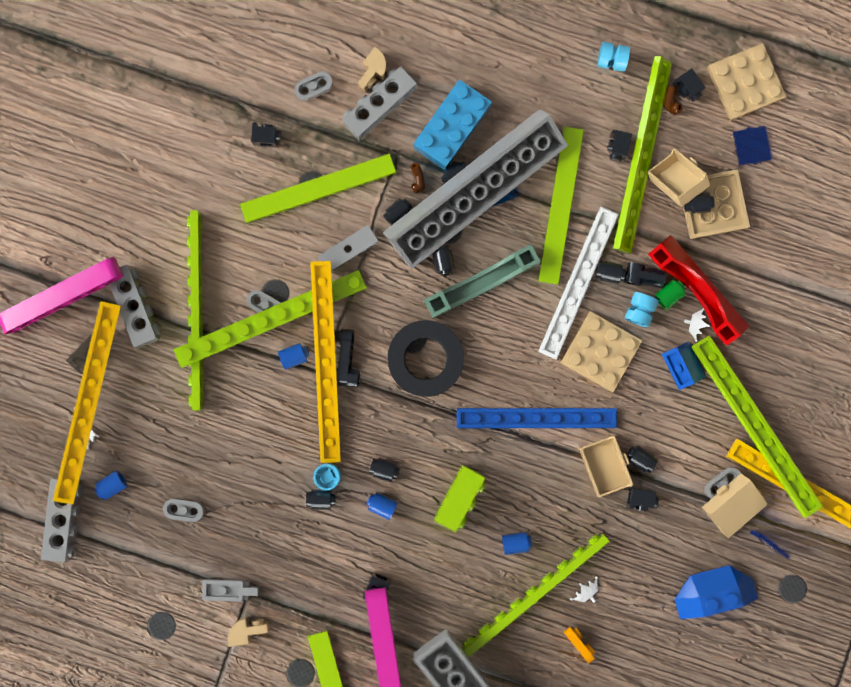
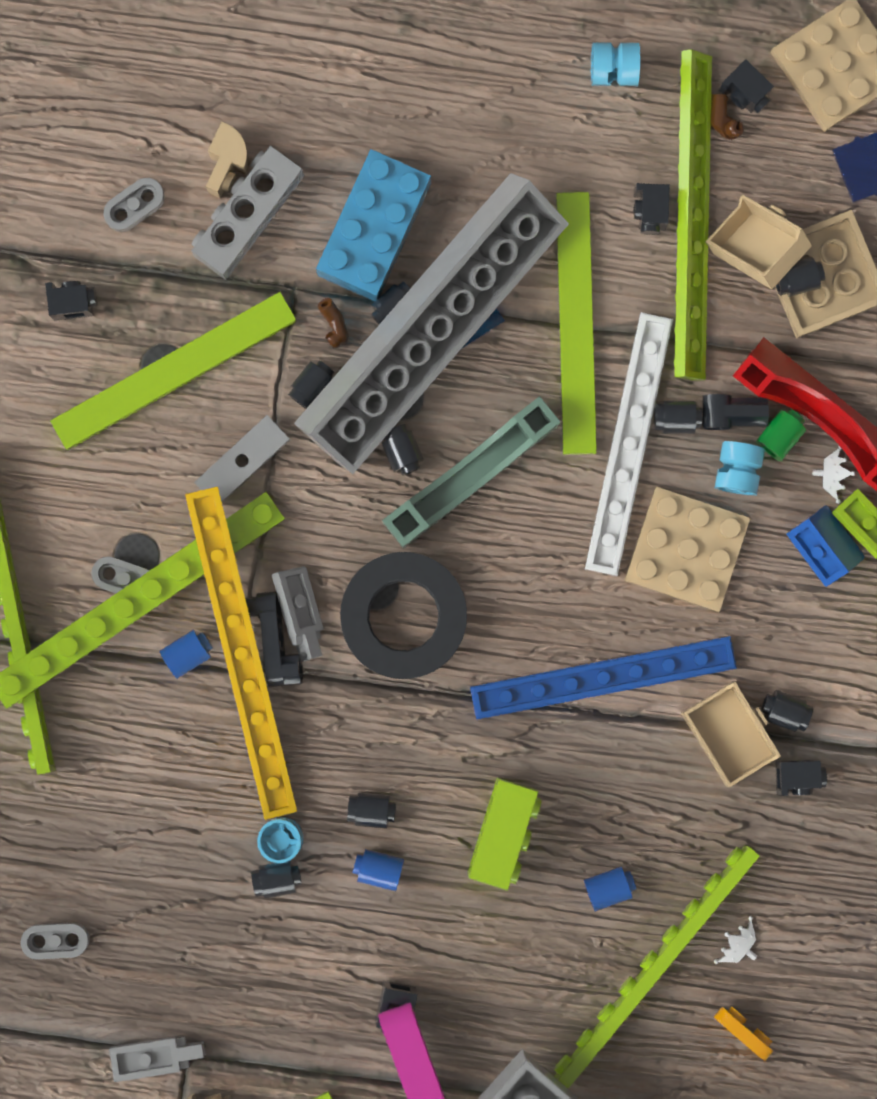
camera: 20 degrees left, 0 degrees up
(364, 344) = (299, 611): none -> light grey hinge

